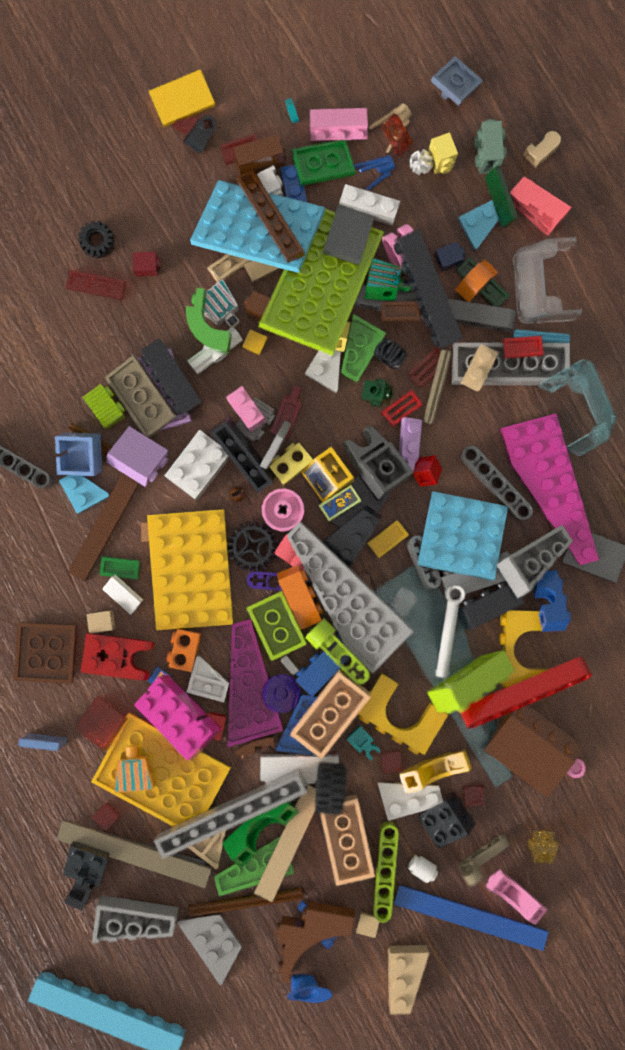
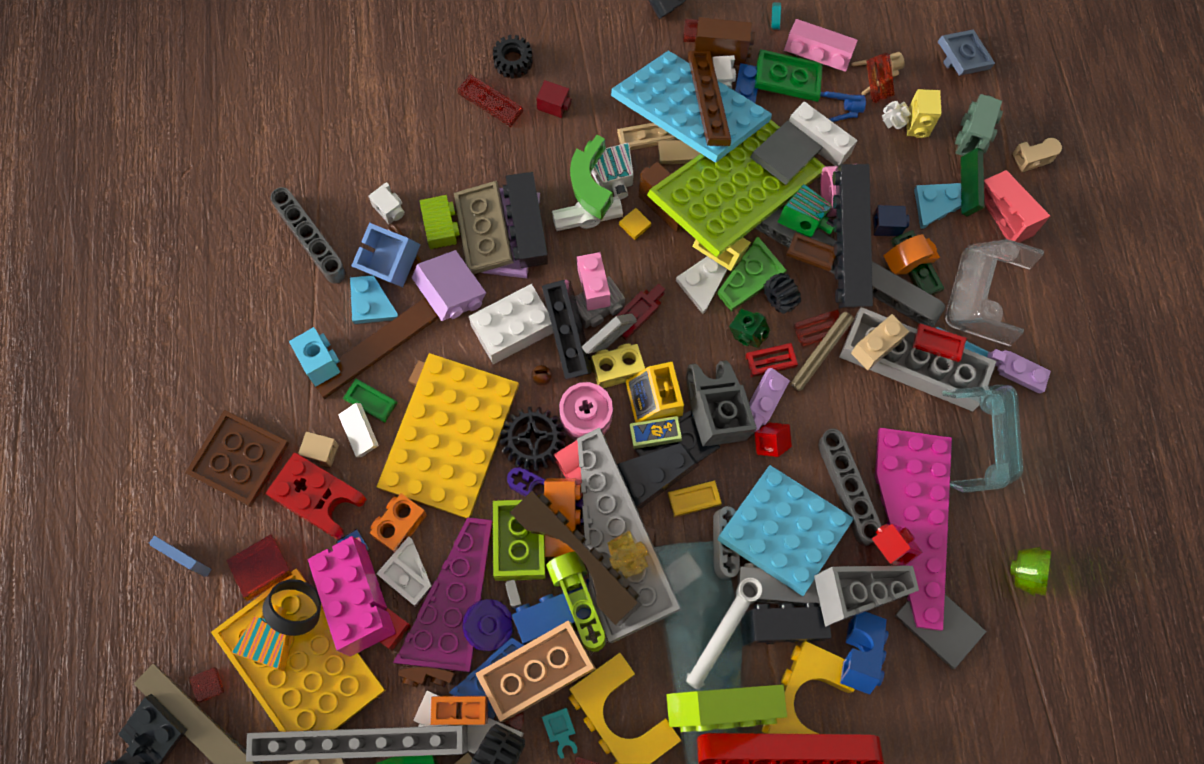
camera: 25 degrees right, 15 degrees down
(54, 551) = (315, 357): none -> medium azure brick
(58, 409) = (386, 203): none -> white brick
(140, 760) = (287, 626): none -> black tyre
(290, 763) = (459, 710): none -> orange brick
(362, 642) = (612, 596): none -> dark brown arch
(364, 613) = (628, 554): none -> clear yellow brick
(545, 516) = (896, 544): none -> brick
(588, 338) = (1020, 370): none -> lavender hinge

